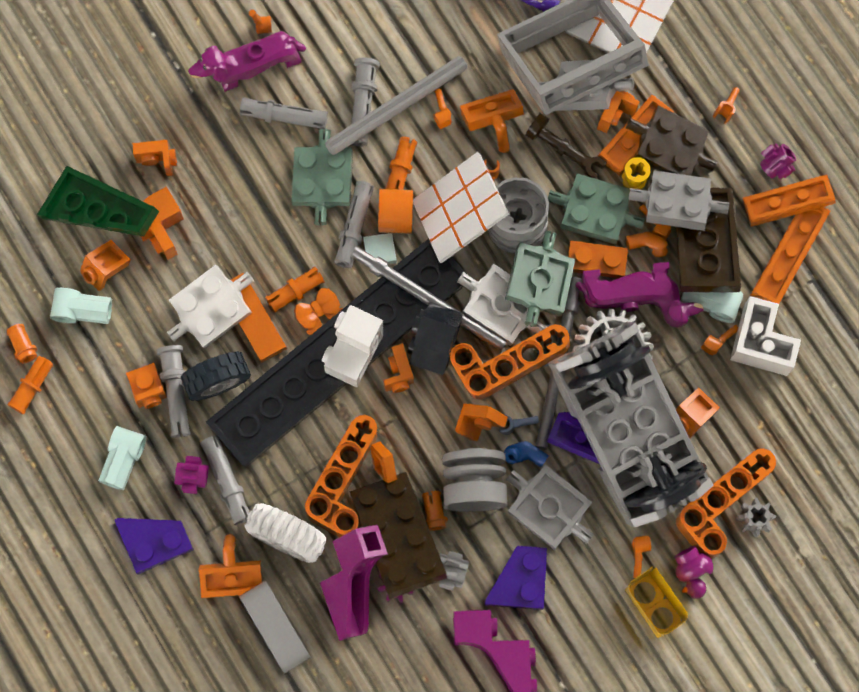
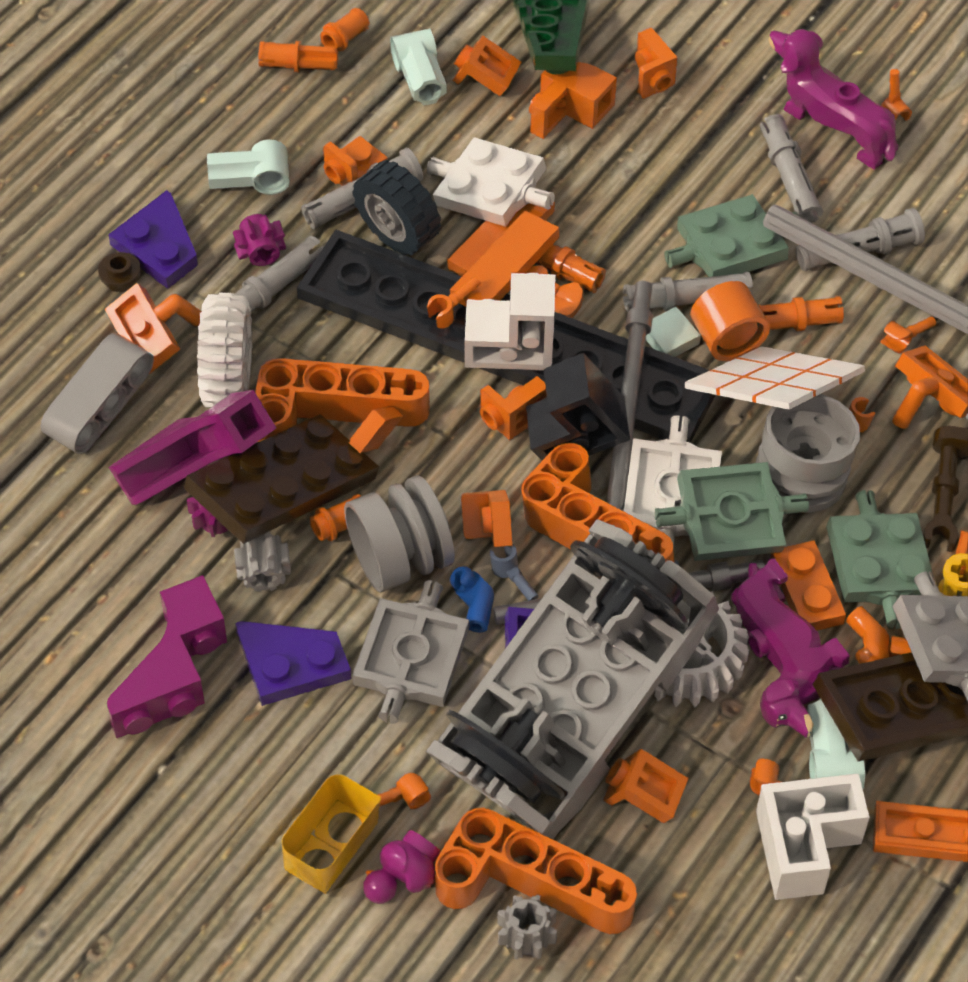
camera: 70 degrees right, 20 degrees down
(176, 583) = (119, 271): none -> dark brown plate
(289, 326) = (512, 252): none -> orange tile
(309, 372) = (446, 303): none -> orange hand

